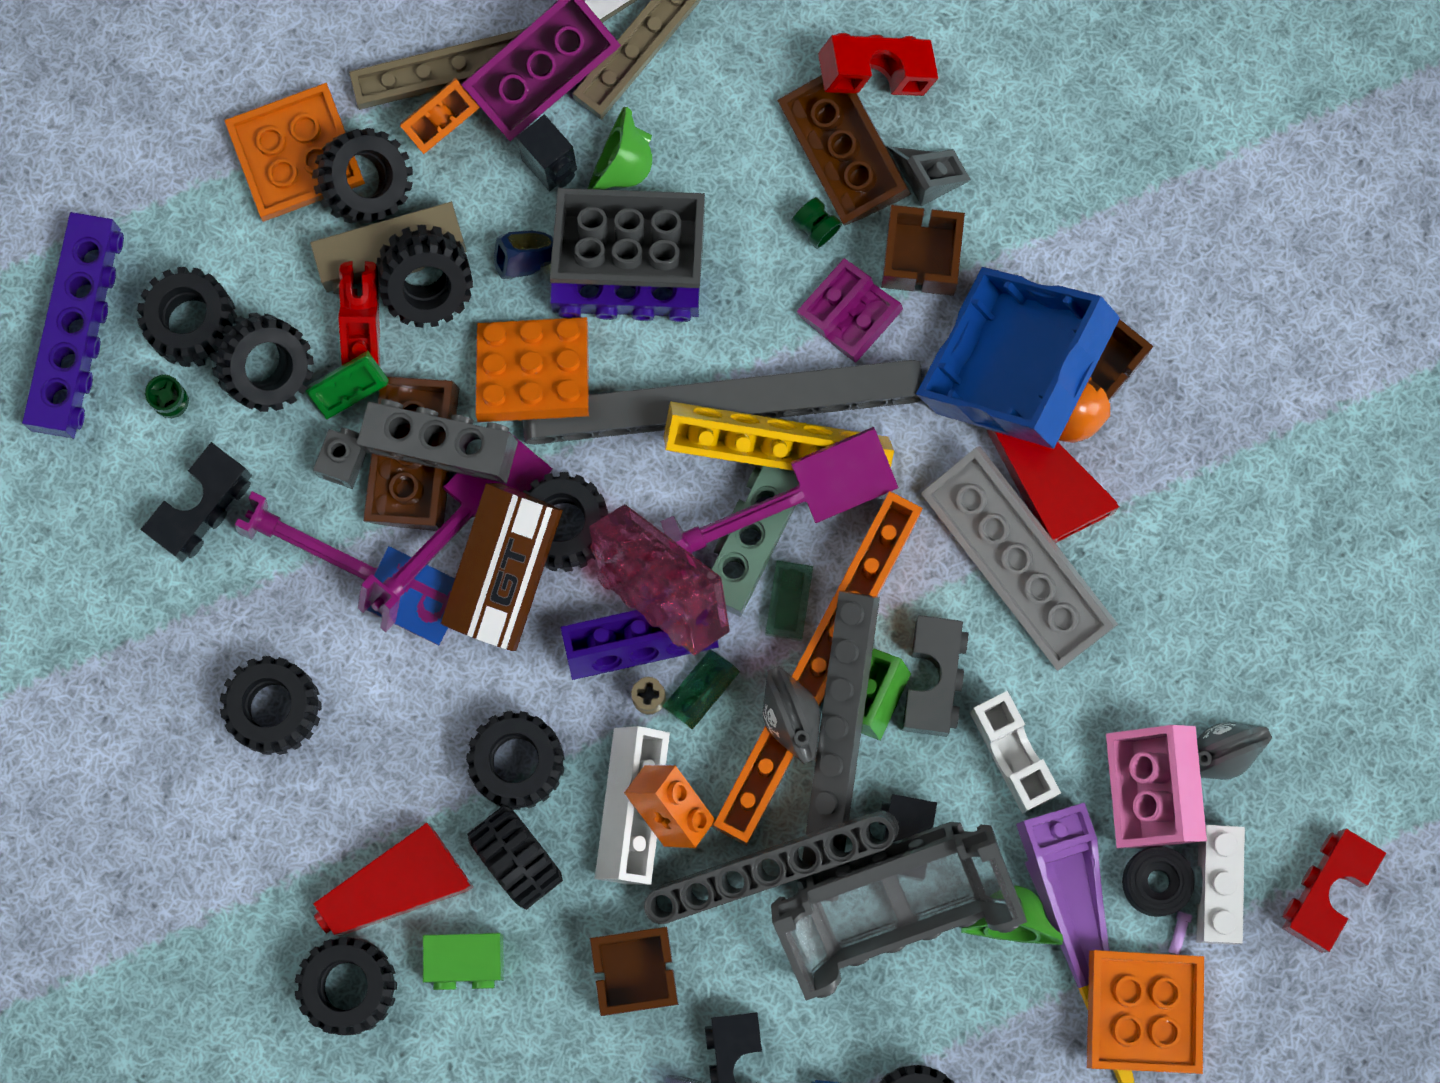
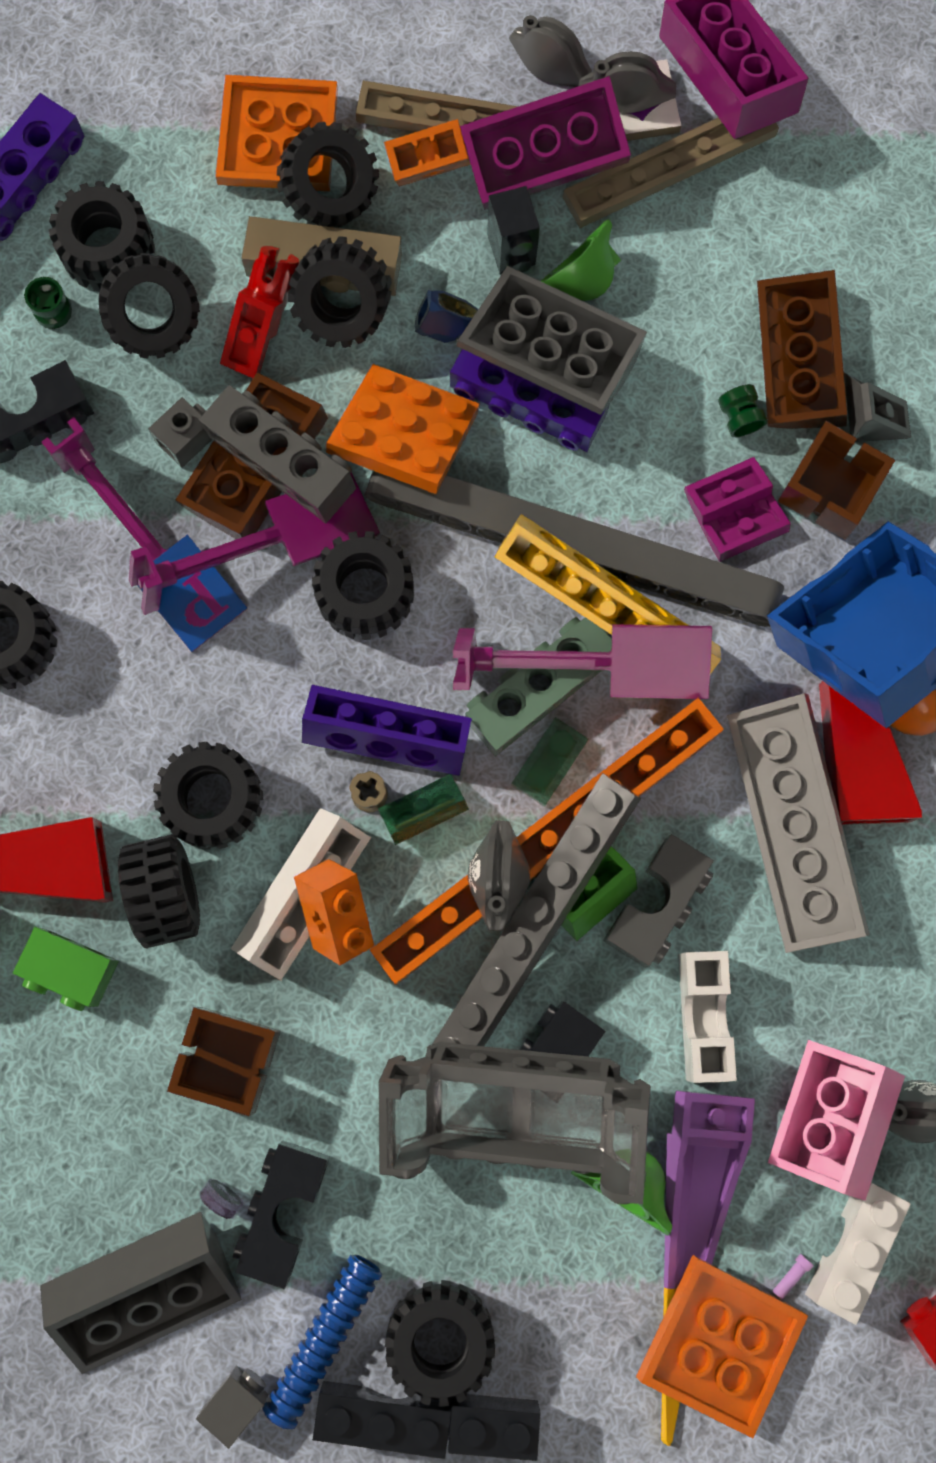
camera: 20 degrees right, 0 degrees up
(347, 385) = (220, 365): green plate -> none
(501, 566) = (282, 599): reddish brown slope -> none
(659, 579) = (429, 681): clear pink brick -> none
(755, 877) = (427, 1014): dark grey beam -> none
(904, 62) = (897, 294): red arch -> none
(1178, 873) = (818, 1221): black tyre -> none

